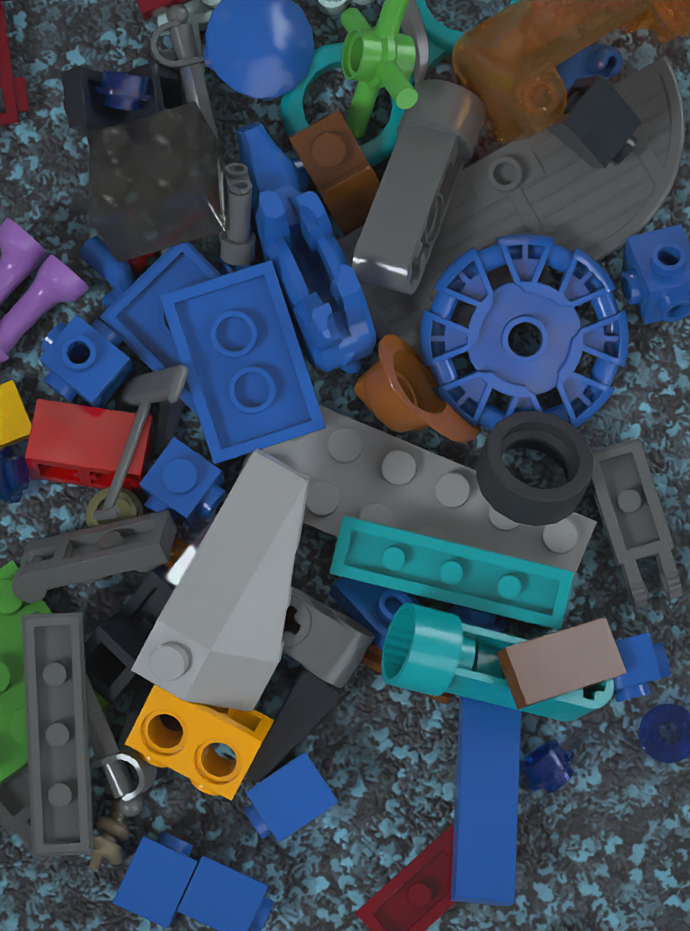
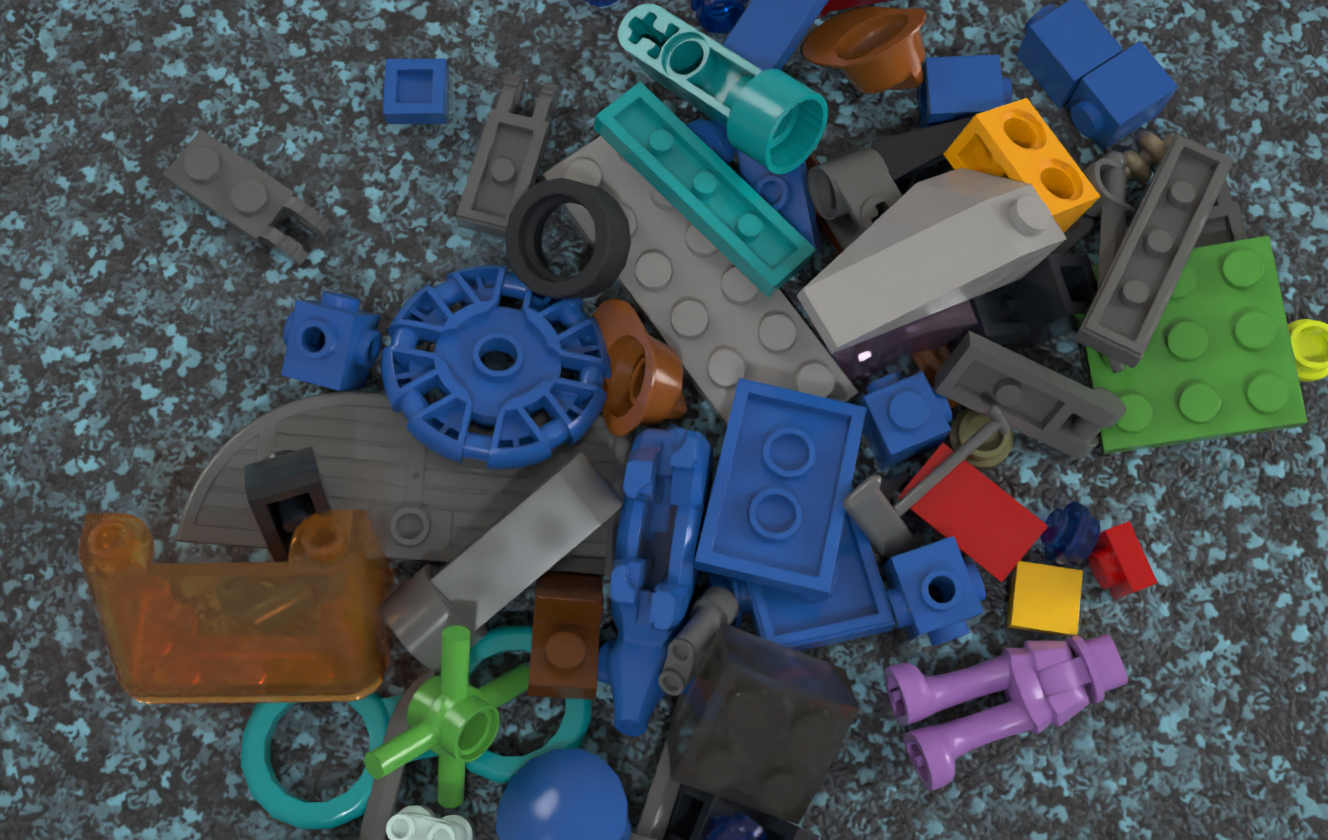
camera: 145 degrees left, 5 degrees down
(101, 259) = (847, 656): blue arm -> none
(397, 795) = (872, 47): none -> dark orange piece
(561, 663) = (659, 44): tile -> none
(642, 663) = (592, 41): blue plate -> none

